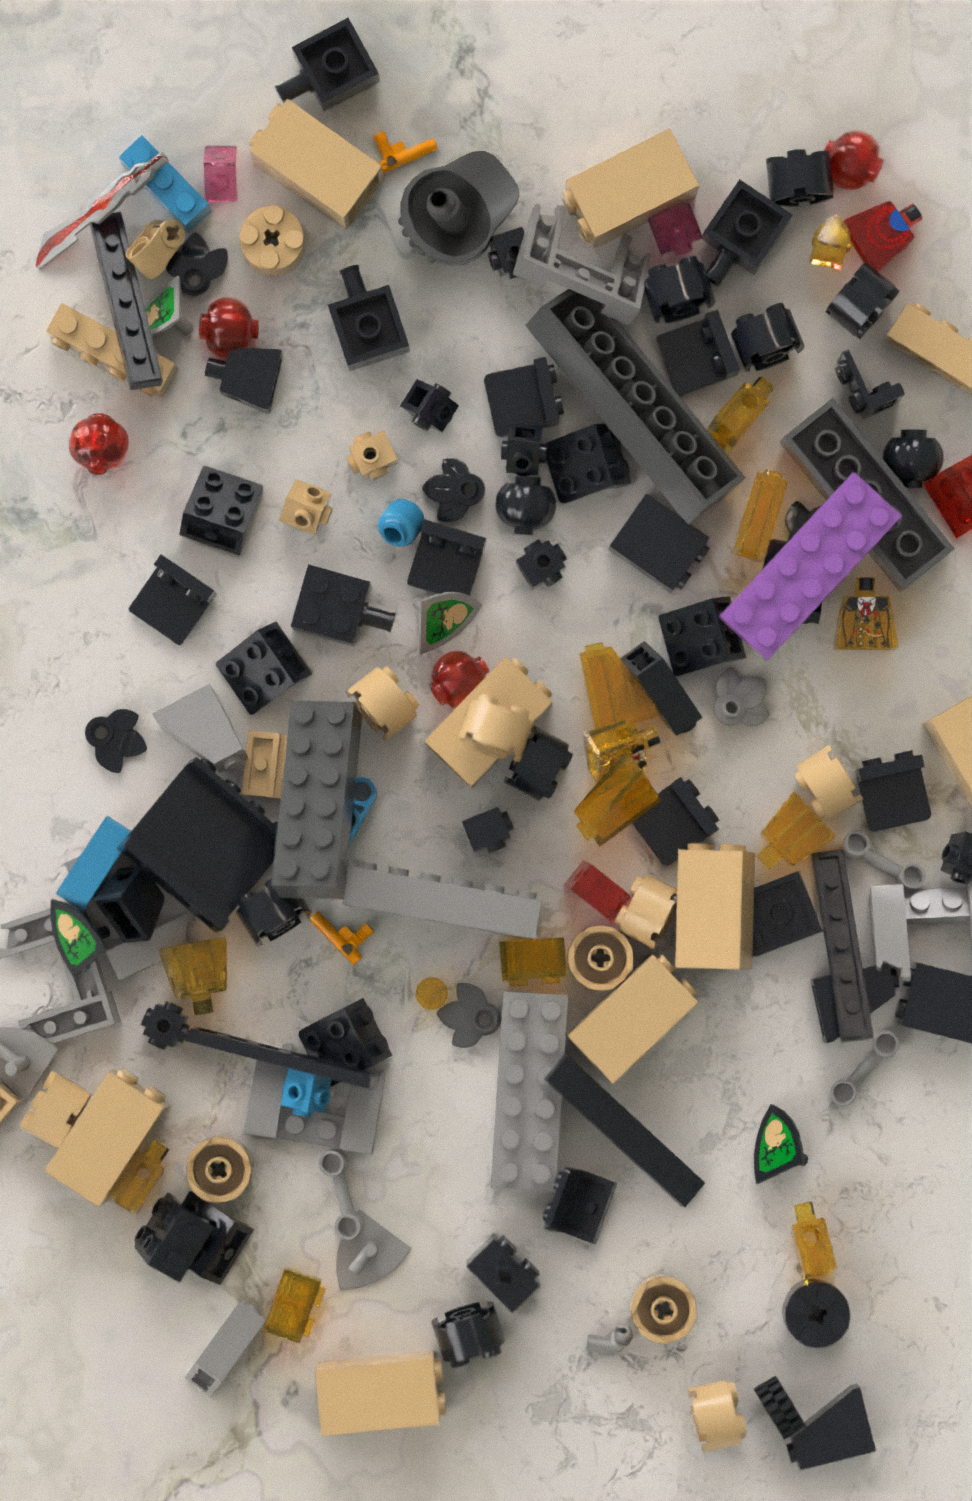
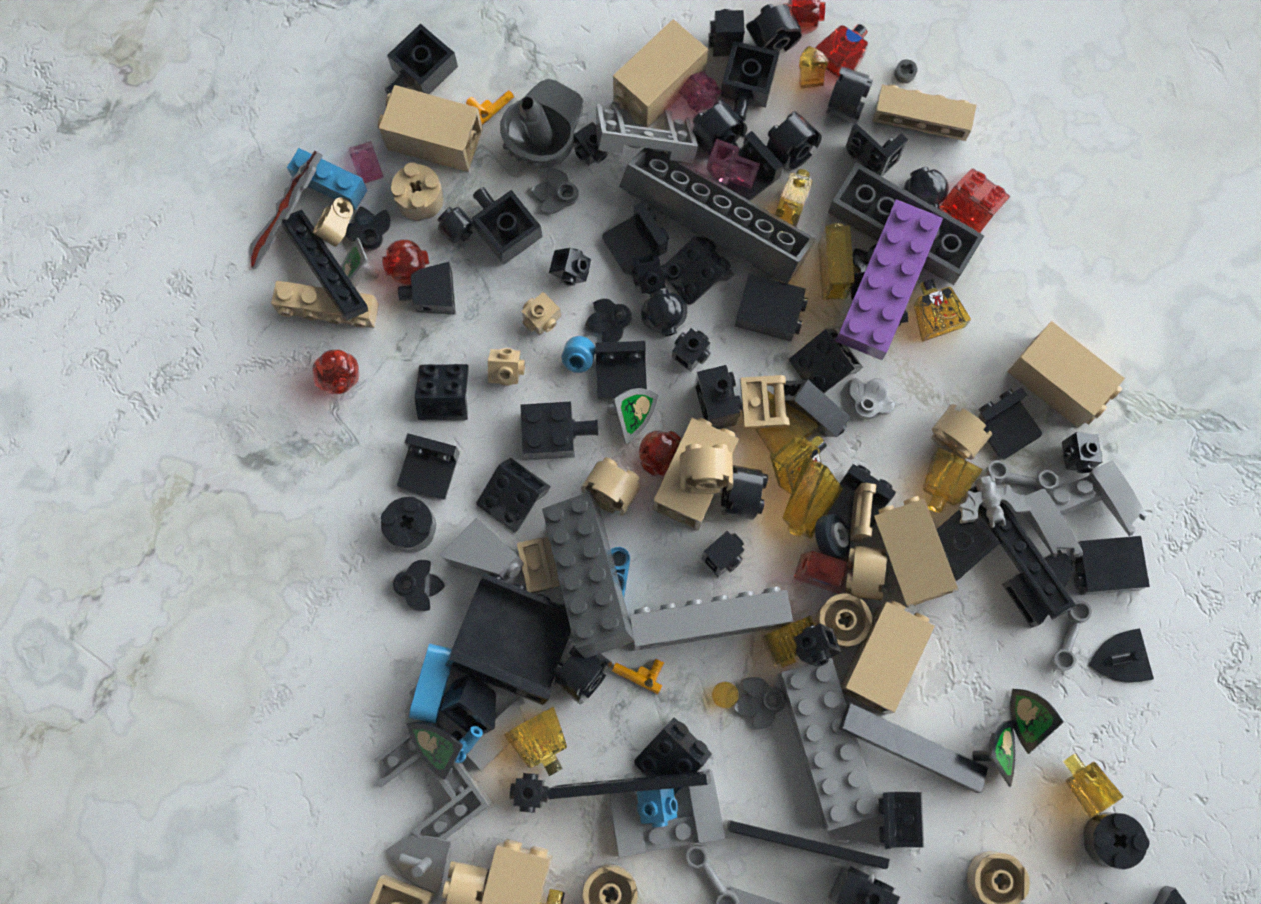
camera: 20 degrees left, 10 degrees down
(111, 653) = (394, 522): none -> black brick
(115, 944) = (468, 742): none -> dark azure arm
(306, 300) = (455, 224): none -> black head
(442, 295) = (552, 191): none -> dark grey plate
(463, 1194) = (808, 844): none -> black tile
(548, 638) = (717, 396): none -> black brick
(553, 976) = (817, 645): none -> black brick
(592, 662) = (755, 402): none -> tan plate
(625, 854) = (832, 536): none -> black wheel
(672, 832) = (862, 512): none -> tan plate
(673, 345) = (727, 166): none -> clear pink brick
(727, 1170) = (1000, 751): none -> shield
(736, 160) = (724, 29): none -> black brick
(830, 874) = (990, 497): none -> light grey animal
(918, 1115) = (1123, 658): none -> black shield
(954, 276) = (902, 65): none -> dark grey bush

